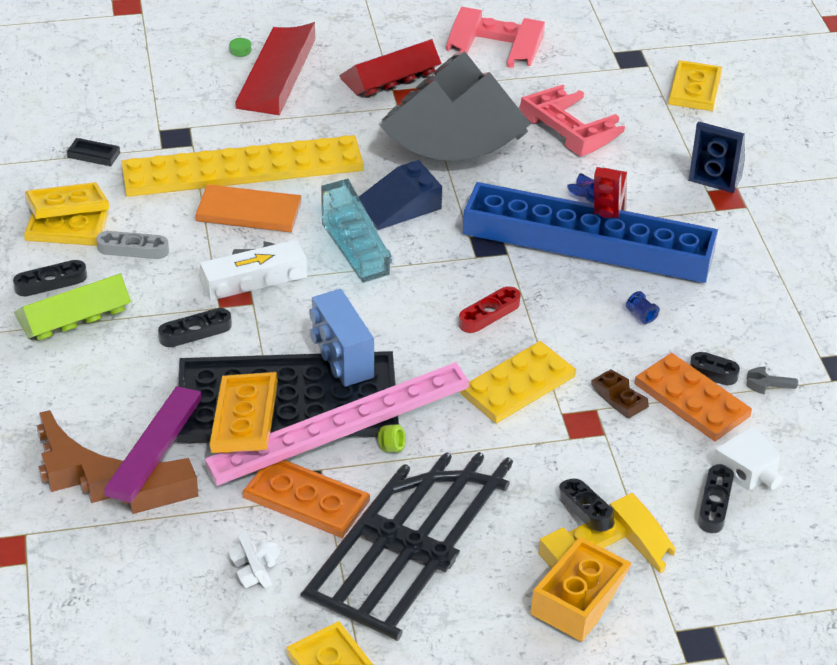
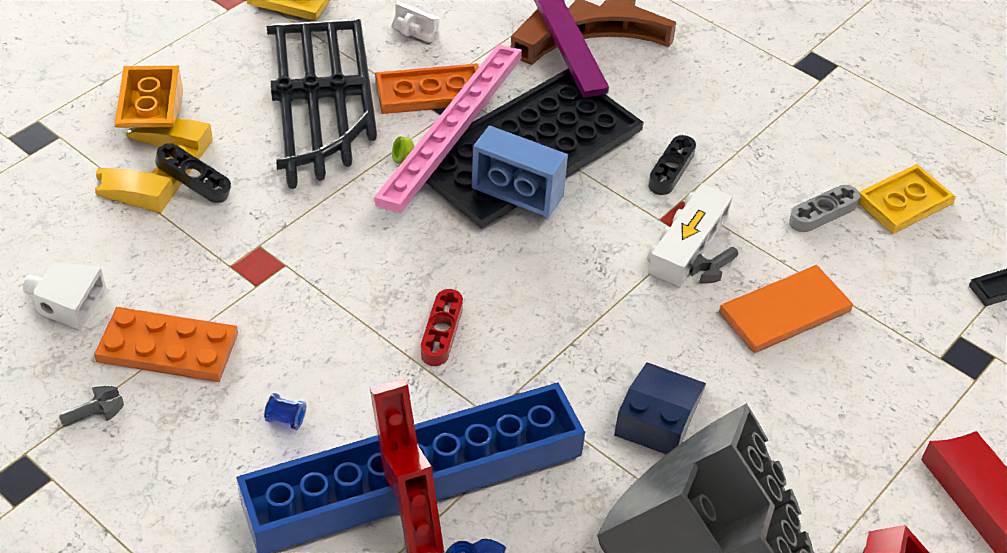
camera: 140 degrees right, 5 degrees up
(66, 200) = (932, 207): yellow tile -> none
(73, 271) = (840, 151): black beam -> none
(73, 306) = (782, 121): lime slope -> none
(241, 165) = (855, 361): yellow plate -> none
(244, 413) = (529, 85): light orange plate -> none
(353, 231) = (648, 318): clear light blue wedge -> none
(518, 381) = (348, 269): yellow plate -> none
(617, 392) = (248, 307): reddish brown slope -> none
(708, 505) = (85, 240): black beam -> none
(716, 367) = (162, 386): black beam -> none

